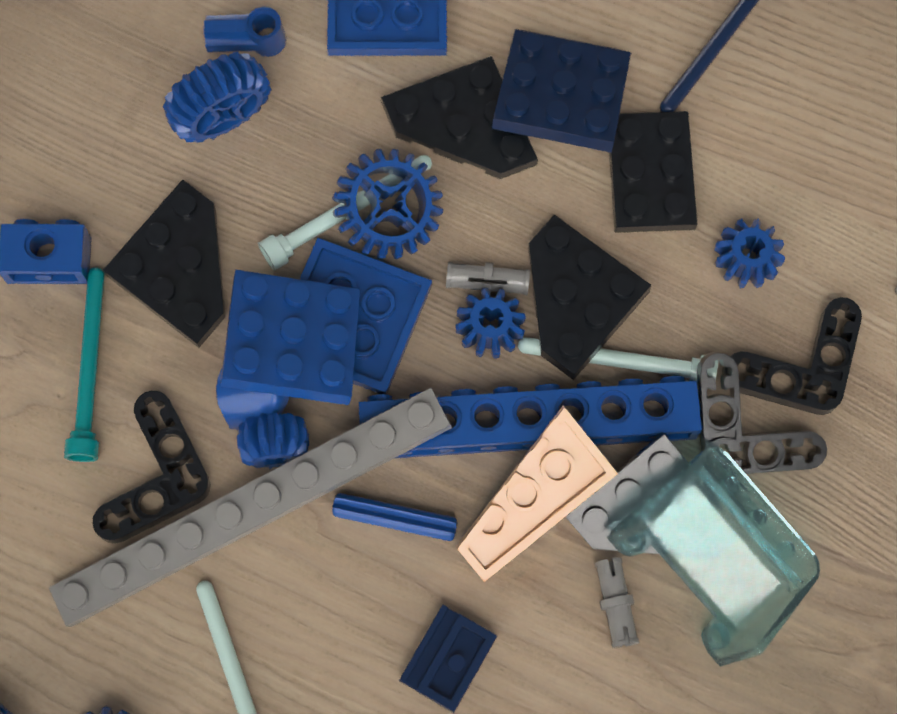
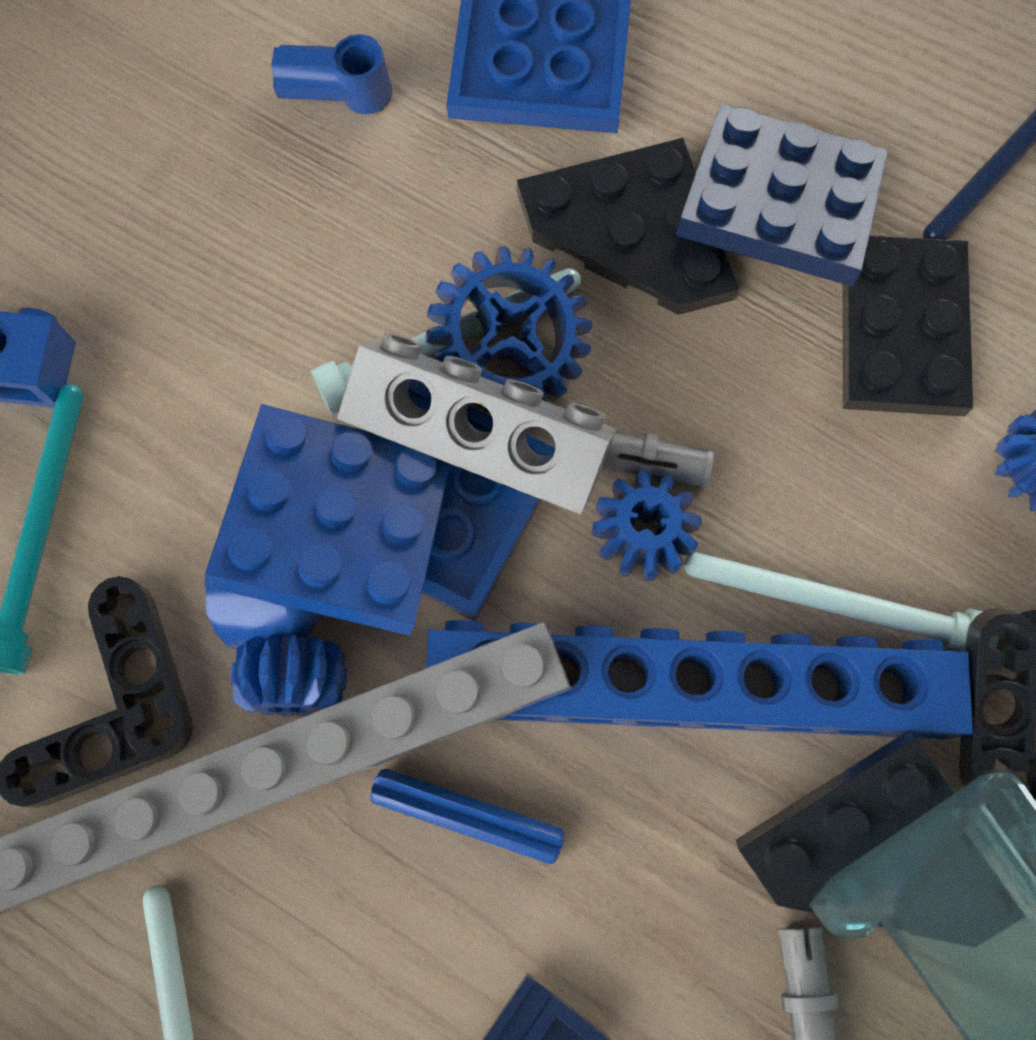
camera: 10 degrees right, 0 degrees up
(176, 264) = (188, 391): black plate -> none
(216, 97) = (274, 151): blue gear -> none
(312, 263) = (380, 404): none -> light grey brick
(543, 489) = (704, 806): light nougat wing -> none
(578, 295) = (784, 498): black plate -> none

